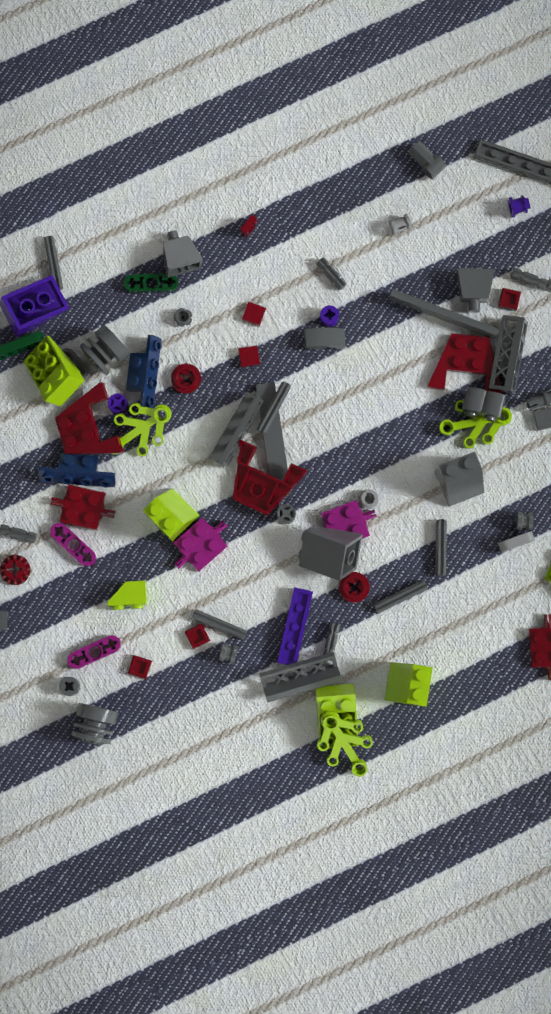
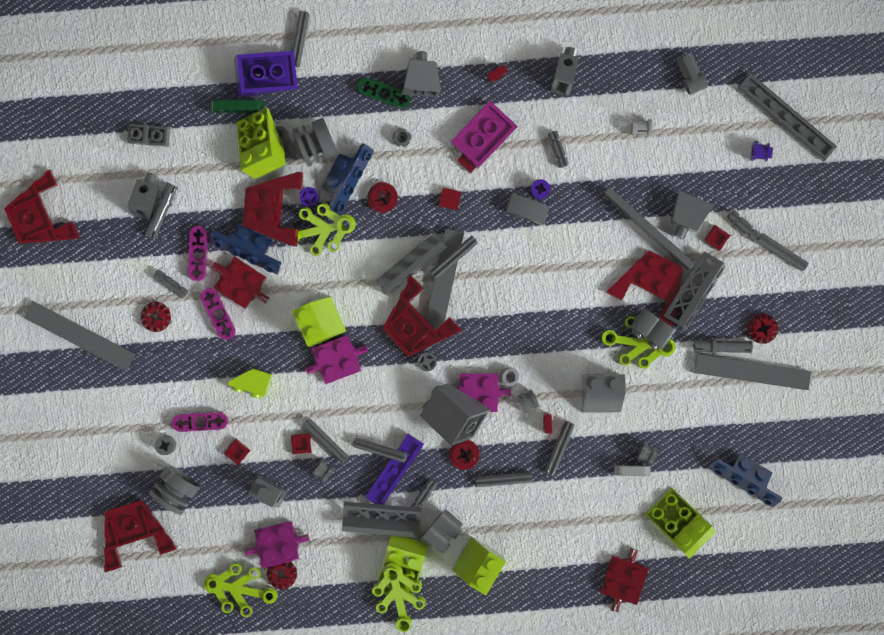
camera: 25 degrees right, 5 degrees up
(23, 484) = (204, 239): none -> magenta beam
(65, 774) = (130, 525): none -> dark red wing
(182, 692) = (267, 491): none -> dark grey torso
(189, 796) = (237, 588): none -> lime plant
(211, 739) = (277, 544): none -> magenta plate
(232, 759) = (284, 583): none -> dark red gear
(258, 285) = (484, 134): none -> magenta plate
(273, 612) = (380, 449): none -> dark grey axle
(310, 201) = (565, 72): none -> dark grey torso
(361, 667) = (441, 532): none -> dark grey brick
(394, 514) = (528, 401): none -> dark grey wheel
(420, 528) = (547, 423): none -> dark red tile

